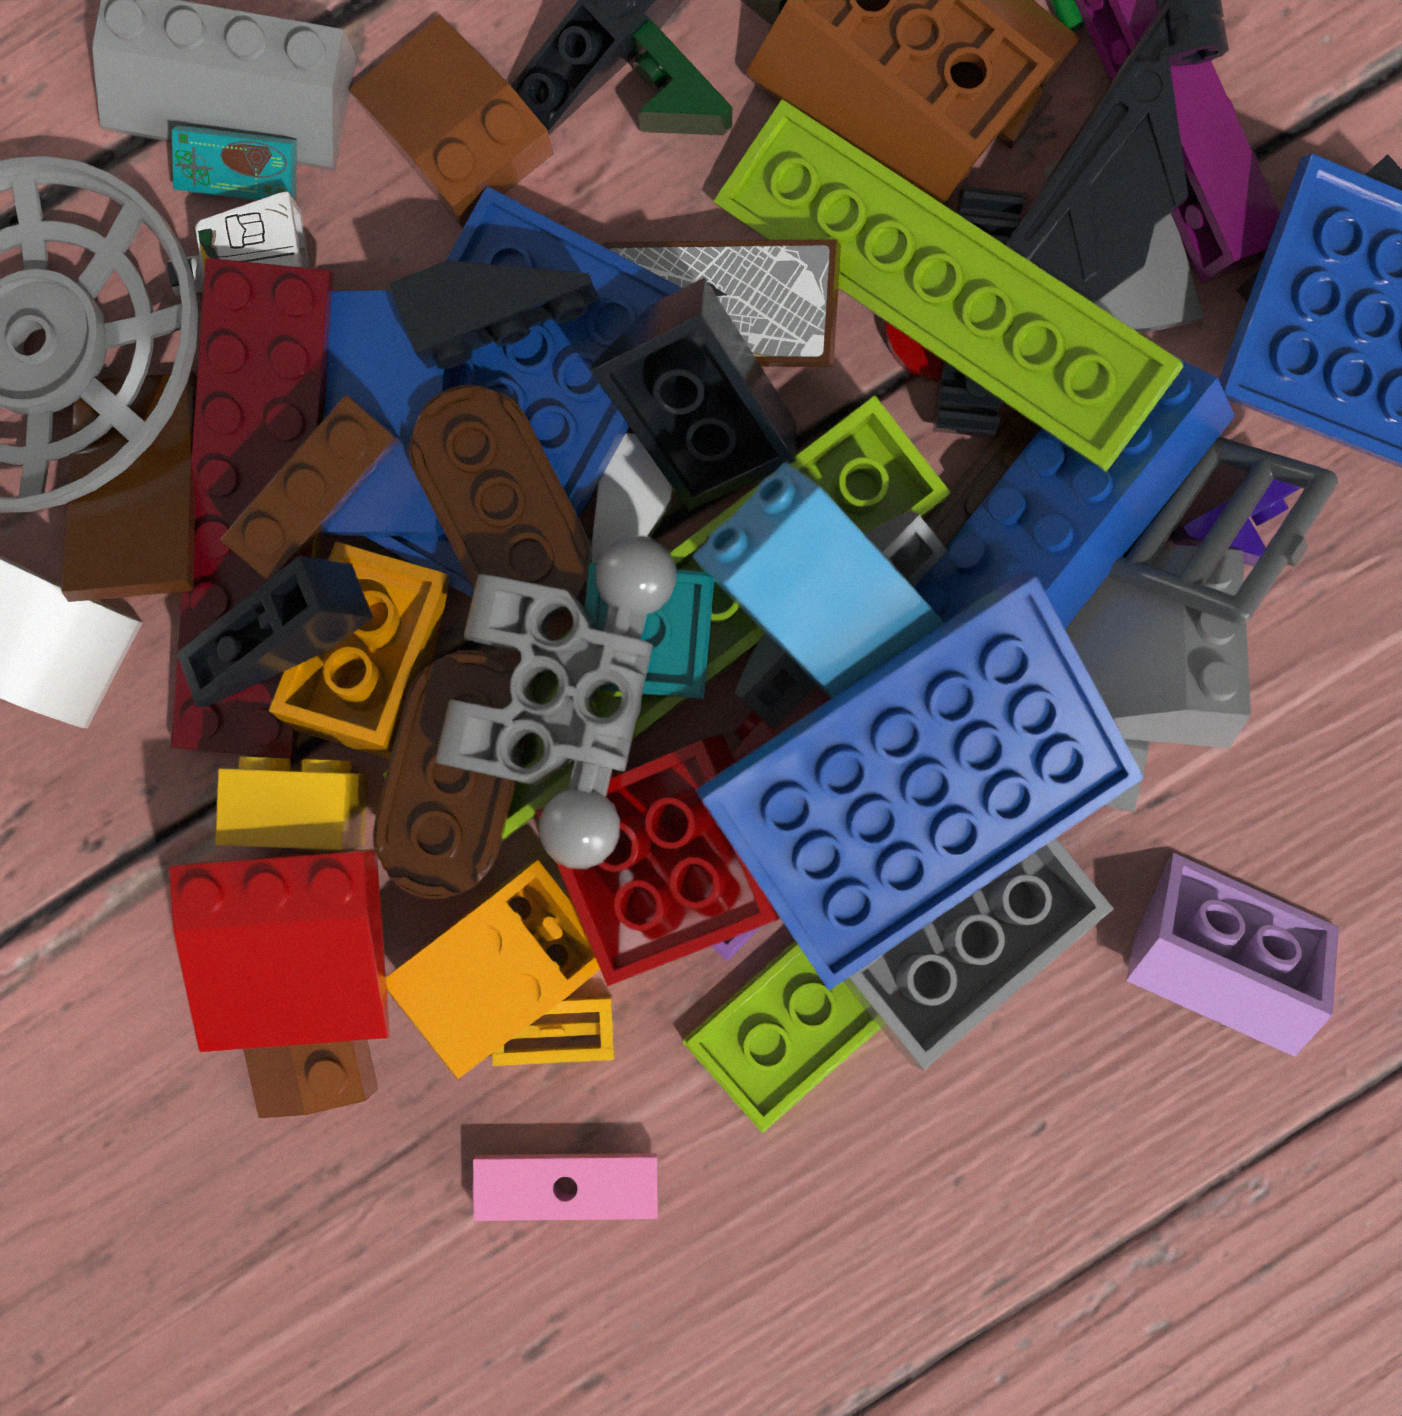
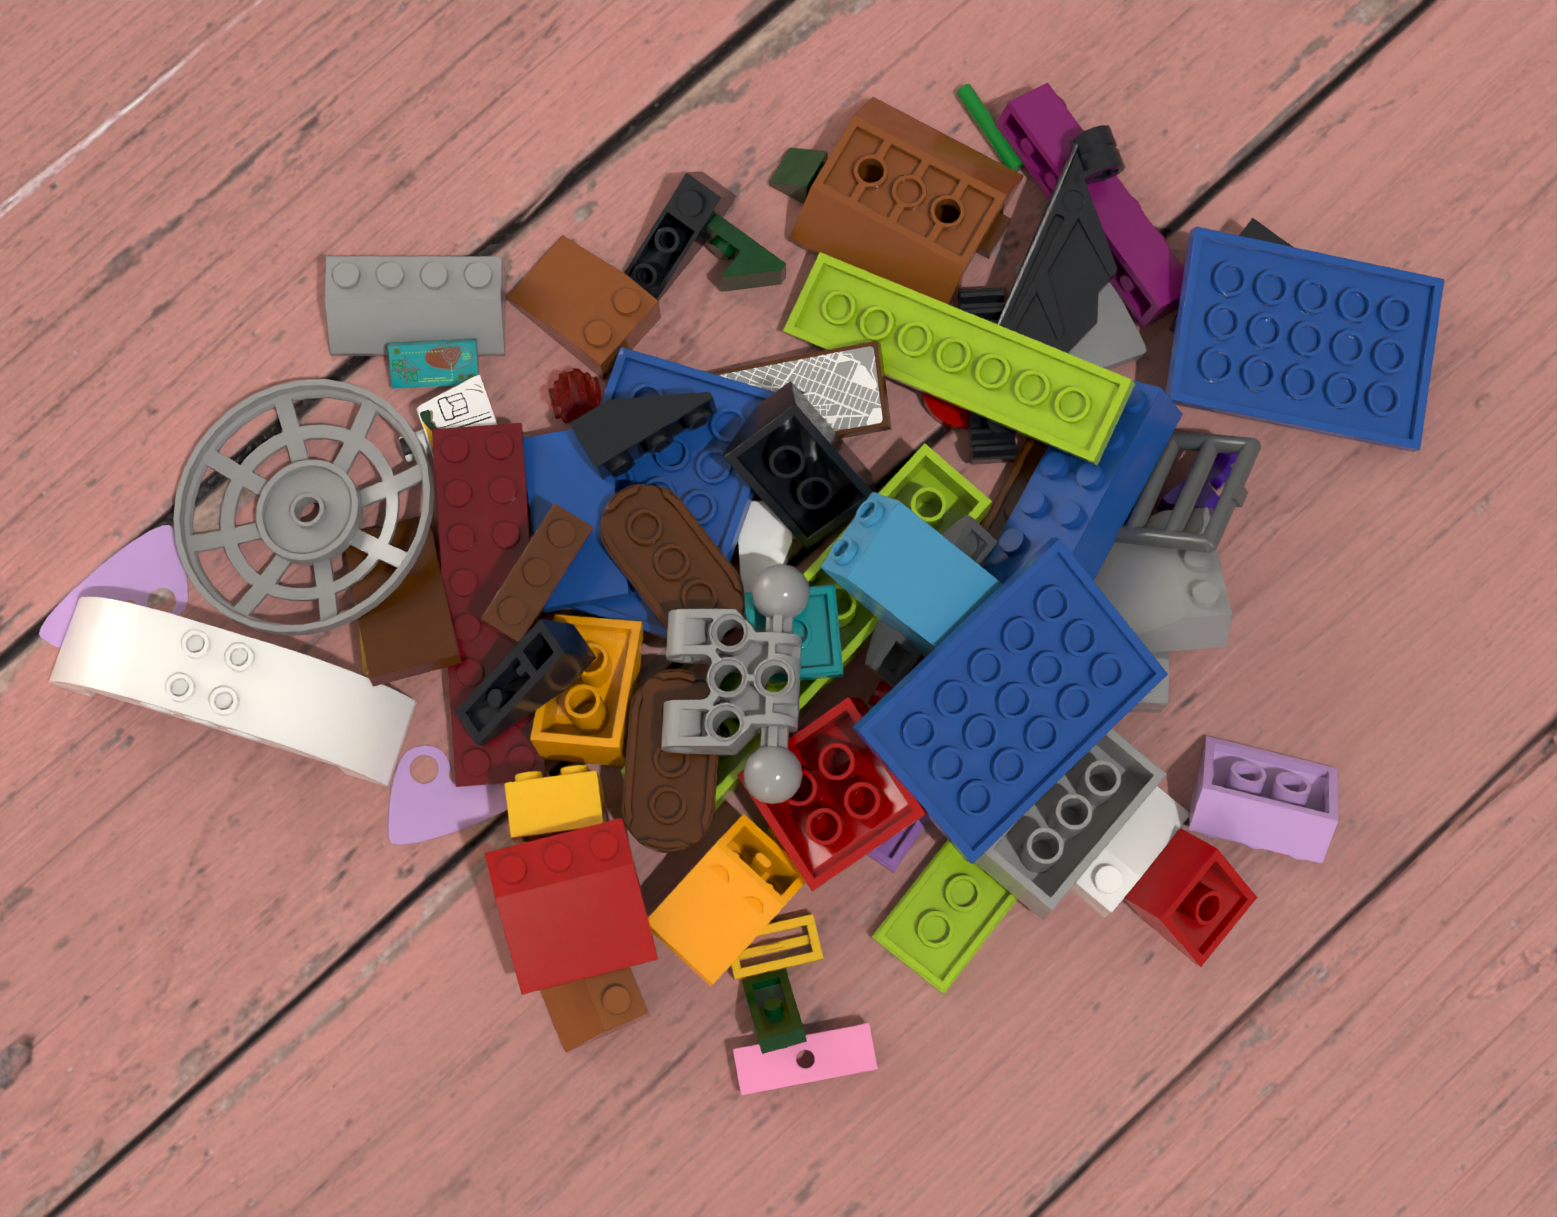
camera: 15 degrees left, 10 degrees down
(141, 767) = (437, 807): none -> lavender piece
(414, 241) = (574, 395): none -> clear red gear
(535, 1122) = (774, 1011): none -> dark green slope
(1048, 999) = (1130, 852): none -> white slope
(1110, 1064) = (1191, 896): none -> red slope

